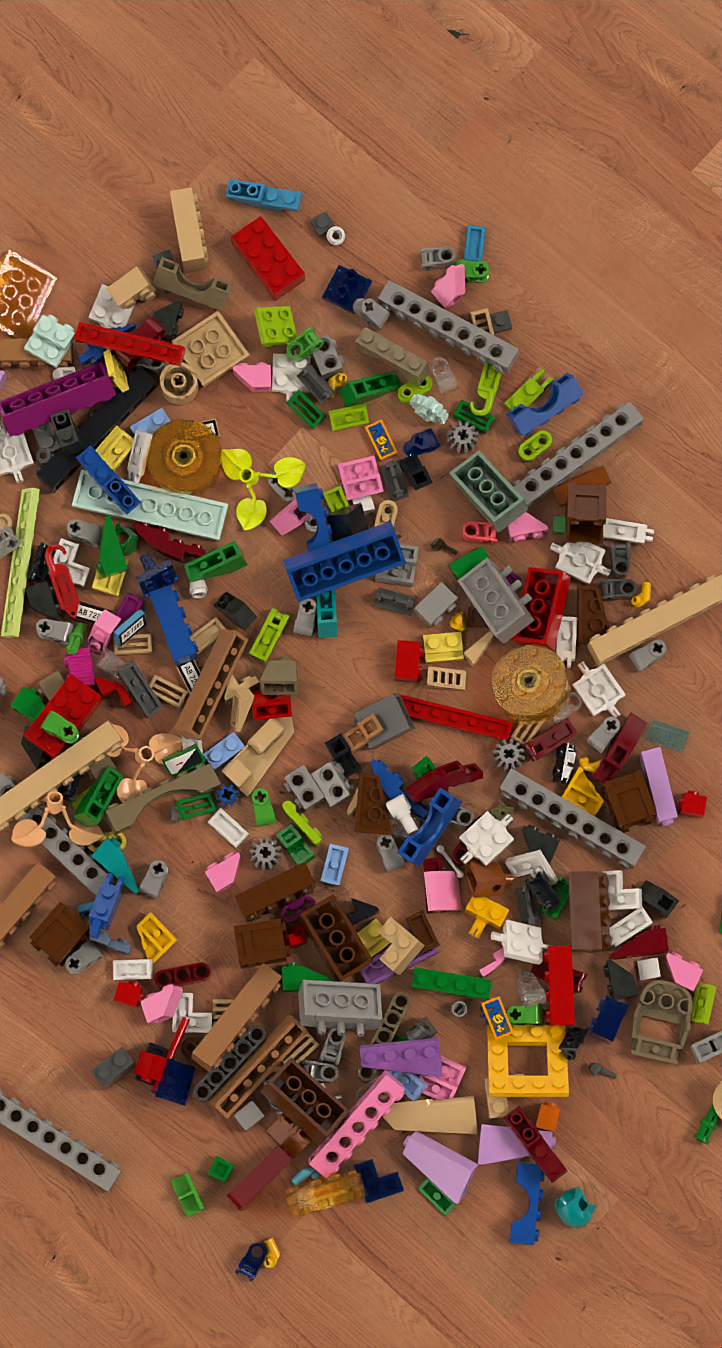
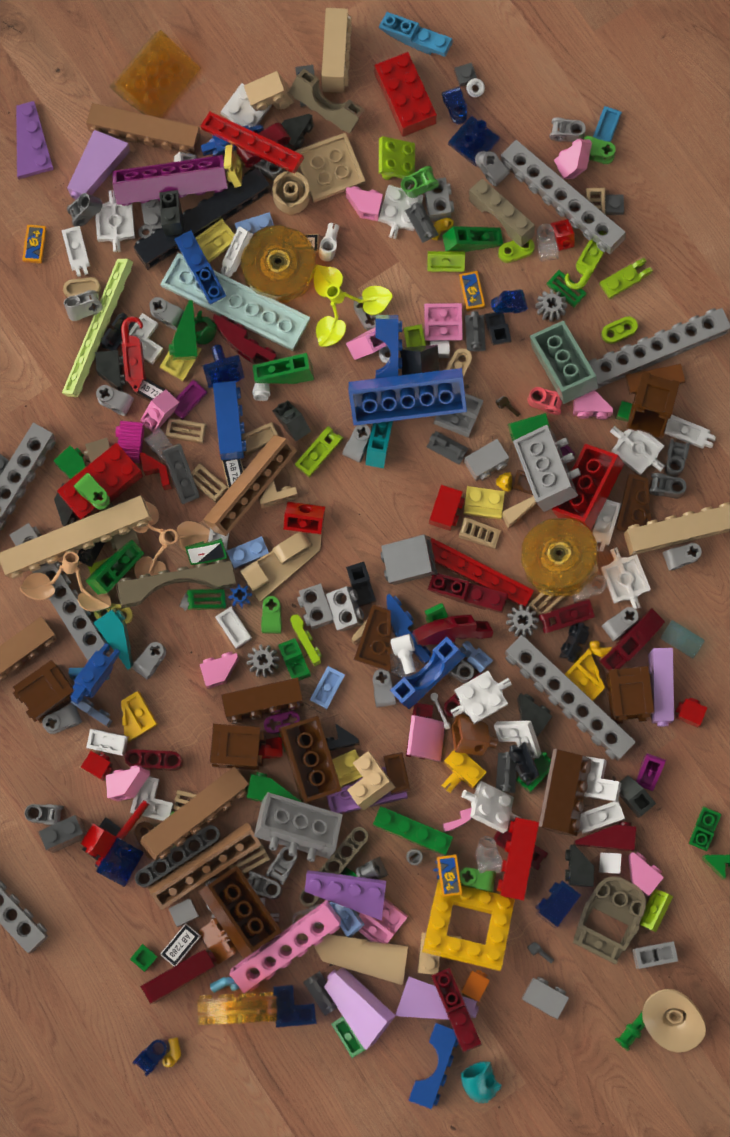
camera: 15 degrees right, 0 degrees up
(50, 340) = (178, 123): light aqua plate -> none
(76, 638) = (132, 411): bright green axle -> none
(90, 1053) = (46, 814): none -> light grey piece
(129, 628) = (186, 413): tile -> none
(188, 1195) = (105, 975): bright green panel -> none
(228, 424) = (329, 242): none -> white pin
(240, 707) = (275, 510): tan slope -> none
(253, 1148) = (180, 945): none -> tile
(280, 677) = (318, 494): dark tan torso -> none
(316, 420) = (400, 248): green tile -> none
(319, 255) = (455, 104): none -> clear blue piece
(363, 733) = (385, 566): medium nougat slope -> none
(403, 1165) = (315, 986): none -> dark grey hinge
(429, 409) = (525, 270): light aqua gear -> none
(449, 740) = (467, 593): none -> dark red slope
(458, 363) = (563, 234): none -> red bracket
(473, 800) = (477, 658): none -> light blue plate
(502, 808) = (503, 671): olive plate -> none
(564, 392) = (660, 285): blue arch -> none
(572, 1042) = (517, 917): black hinge -> none
(616, 1112) = (545, 998): none -> light grey brick
(644, 597) = (691, 499): yellow arm -> none
(666, 871) = (650, 771): none -> magenta slope

